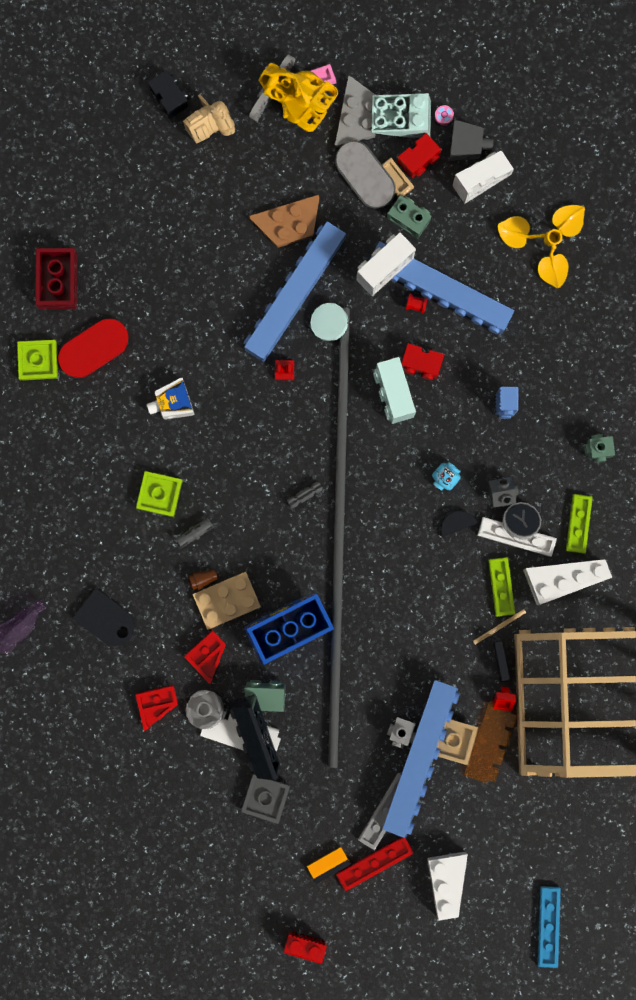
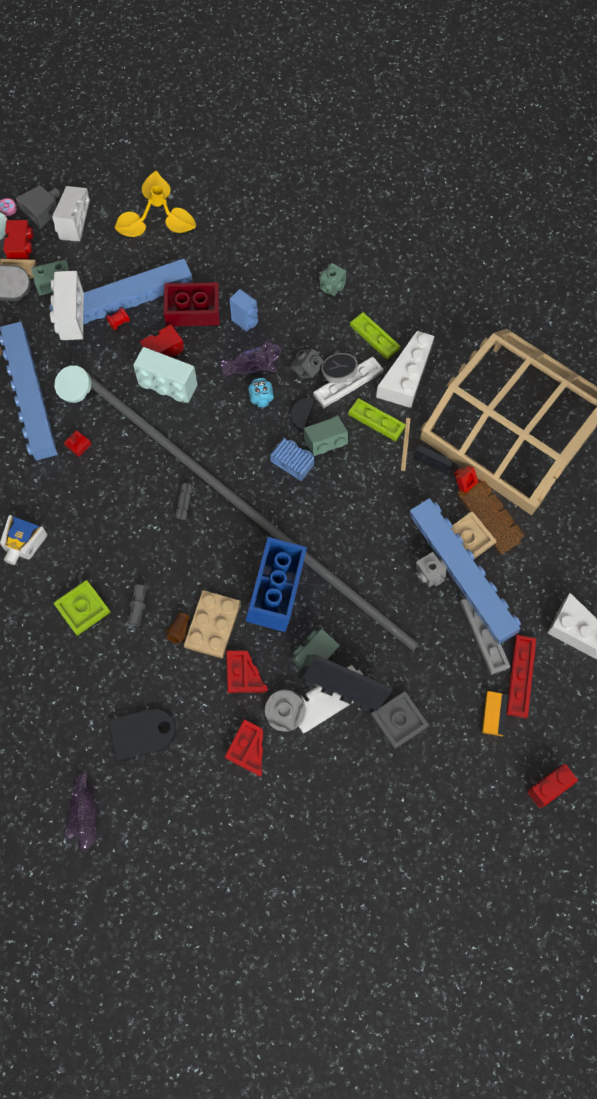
camera: 50 degrees left, 15 degrees down
(408, 549) = (292, 459): none -> medium blue brick
(449, 561) = (326, 436): none -> sand green brick
(470, 446) = (253, 360): none -> clear purple animal
(478, 353) = (192, 304): none -> dark red brick

